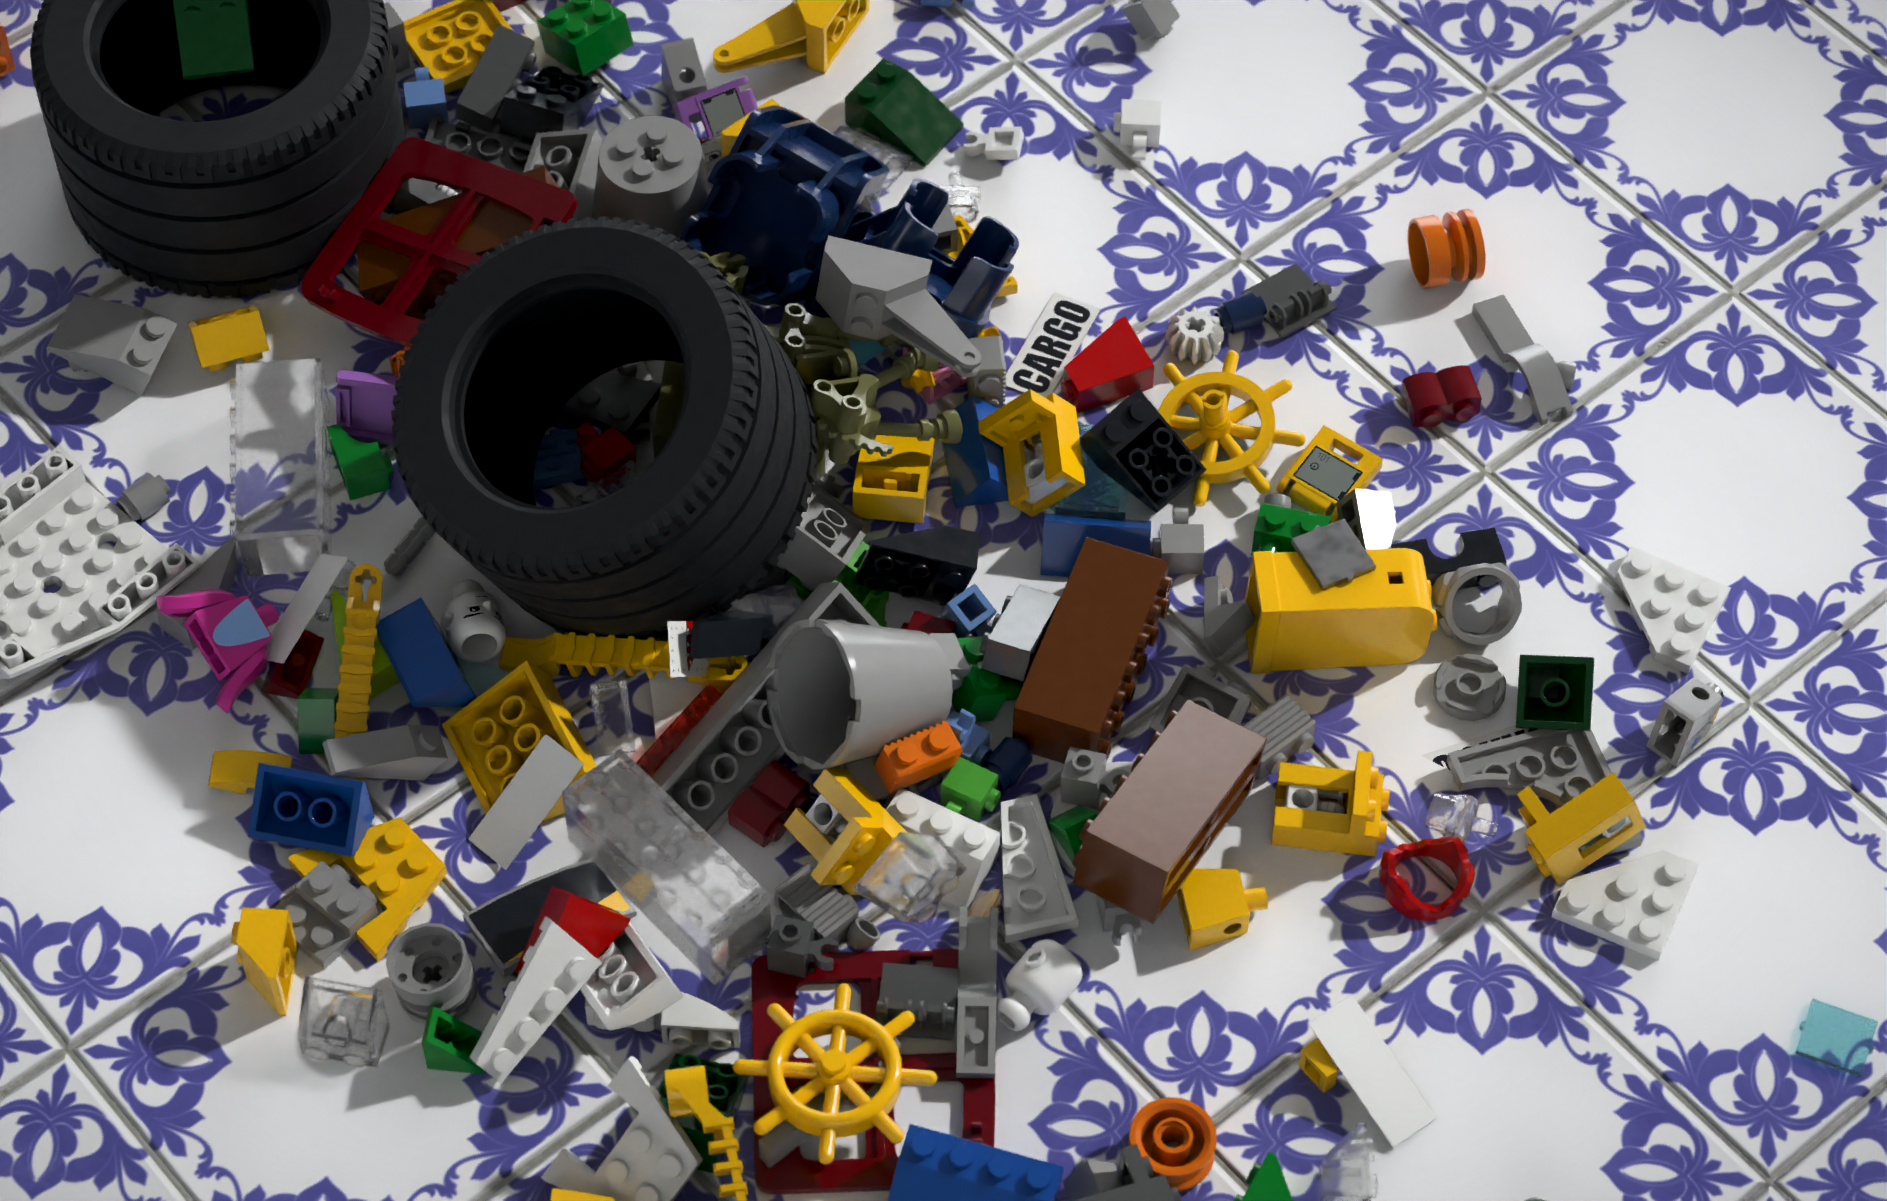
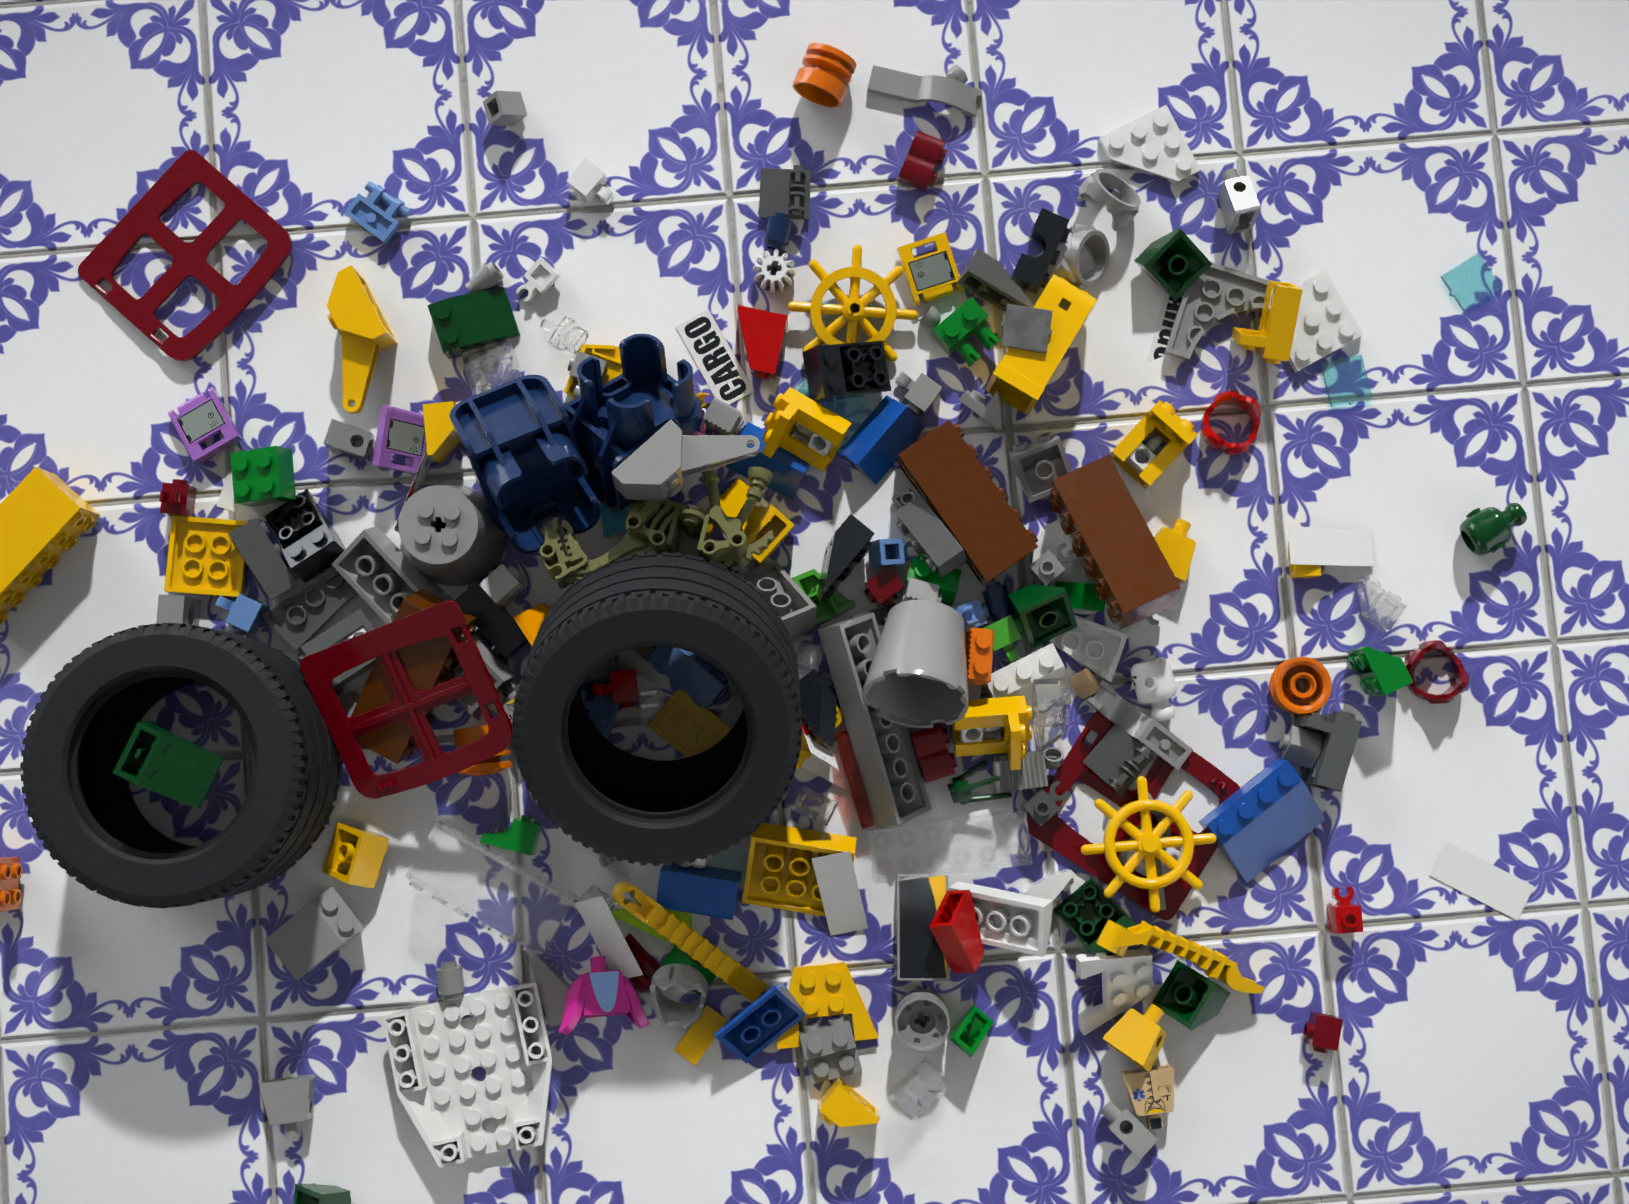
camera: 55 degrees left, 30 degrees up
(257, 713) = (685, 979): none -> light grey piece
(366, 404) = (489, 802): medium lavender container -> none
(387, 753) = (756, 957): light grey slope -> none
(546, 984) = (984, 969): white wing -> none
(754, 861) = (961, 790): none -> dark green plant
(960, 99) = (485, 278): none -> light grey cone
(1026, 802) = (1042, 612): none -> dark green slope
(1286, 730) = (1085, 437): light grey brick -> none
(1457, 816) = (1205, 378): clear piece -> none
(1469, 687) = (1124, 302): light grey tile -> none
(1561, 606) = (1095, 188): none -> light grey piece
(1591, 975) = (1346, 380): none -> clear light blue piece

